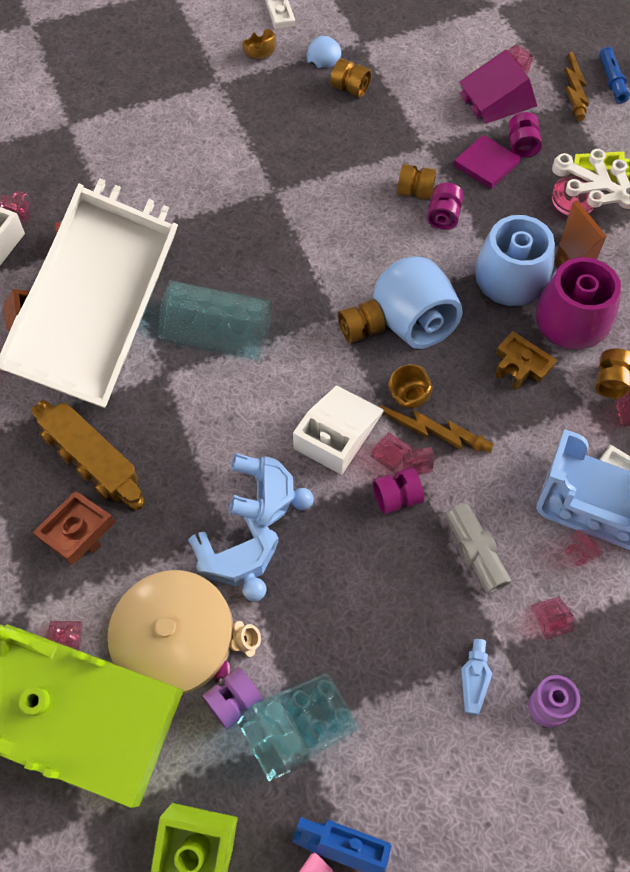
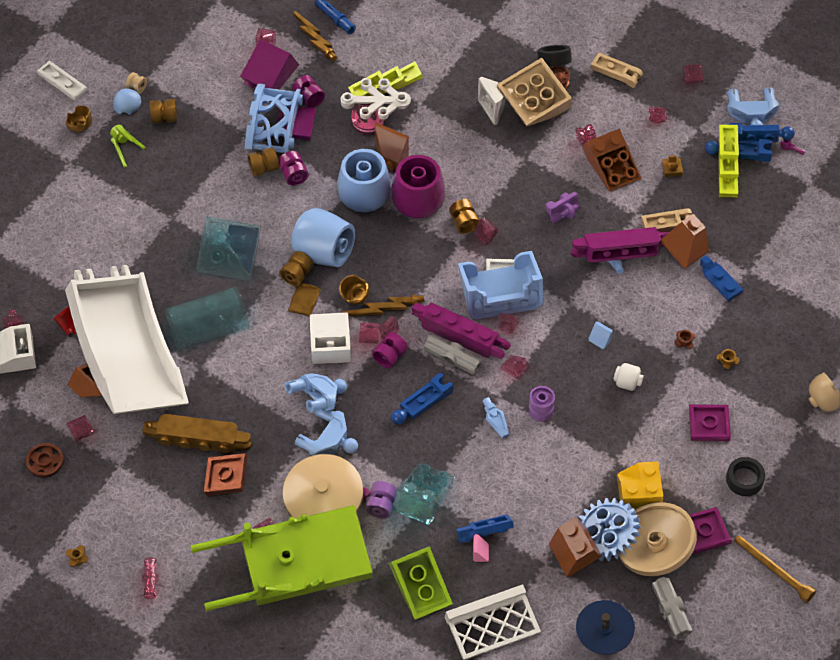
camera: 35 degrees left, 5 degrees down
(245, 638) = (365, 470): tan plate -> none
(288, 82) = (120, 135): none -> lime plant
(301, 254) = (228, 248): none -> clear light blue slope
(346, 364) = (304, 299): none -> pearl gold piece
(347, 39) = (136, 83): none -> tan wheel
(393, 585) = (422, 399): none -> blue plate
(466, 115) = (283, 100): none -> light blue fence
(511, 522) = (460, 330): none -> magenta hinge
(522, 360) = (406, 238): pearl gold plate -> none

